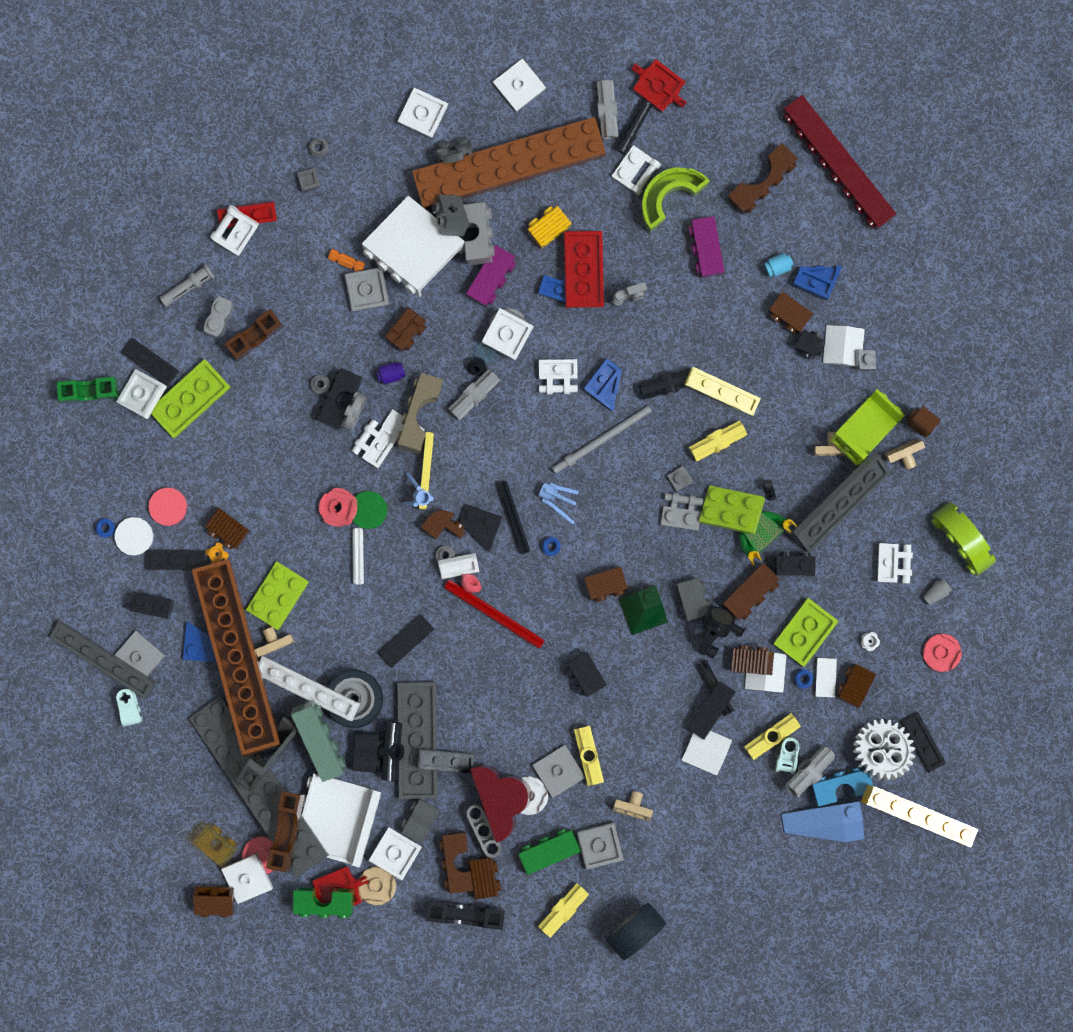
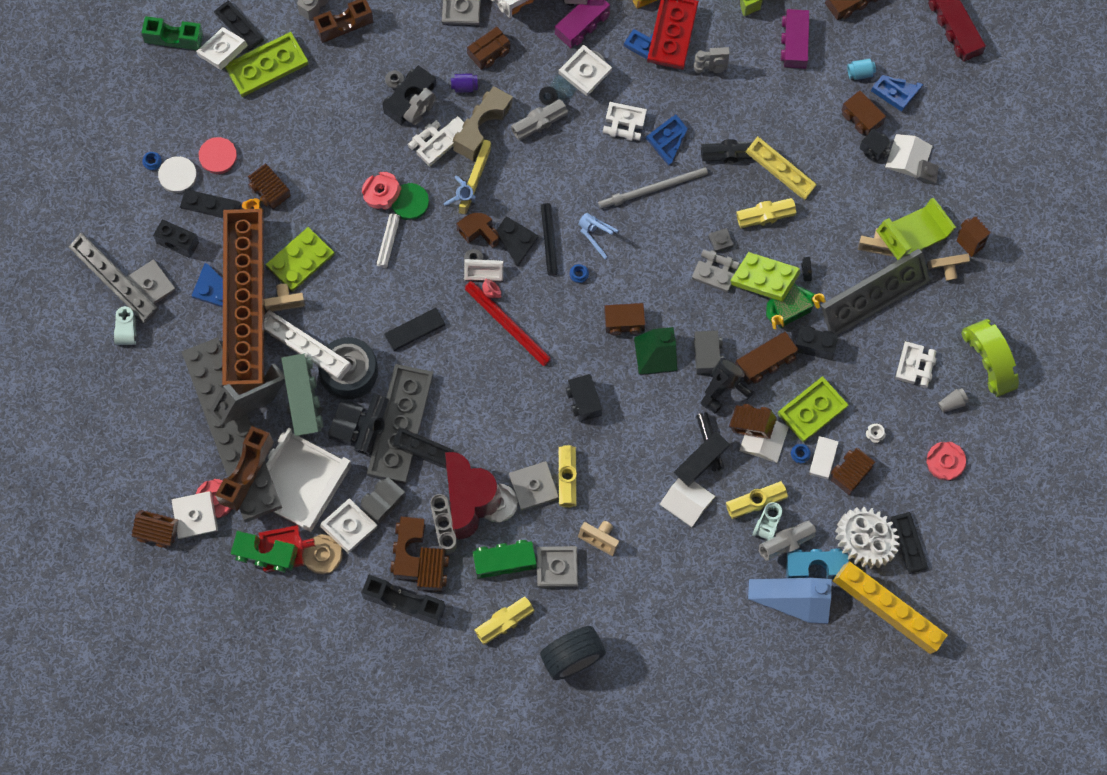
camera: 15 degrees right, 15 degrees down
(205, 840) = (165, 467): clear yellow brick -> none

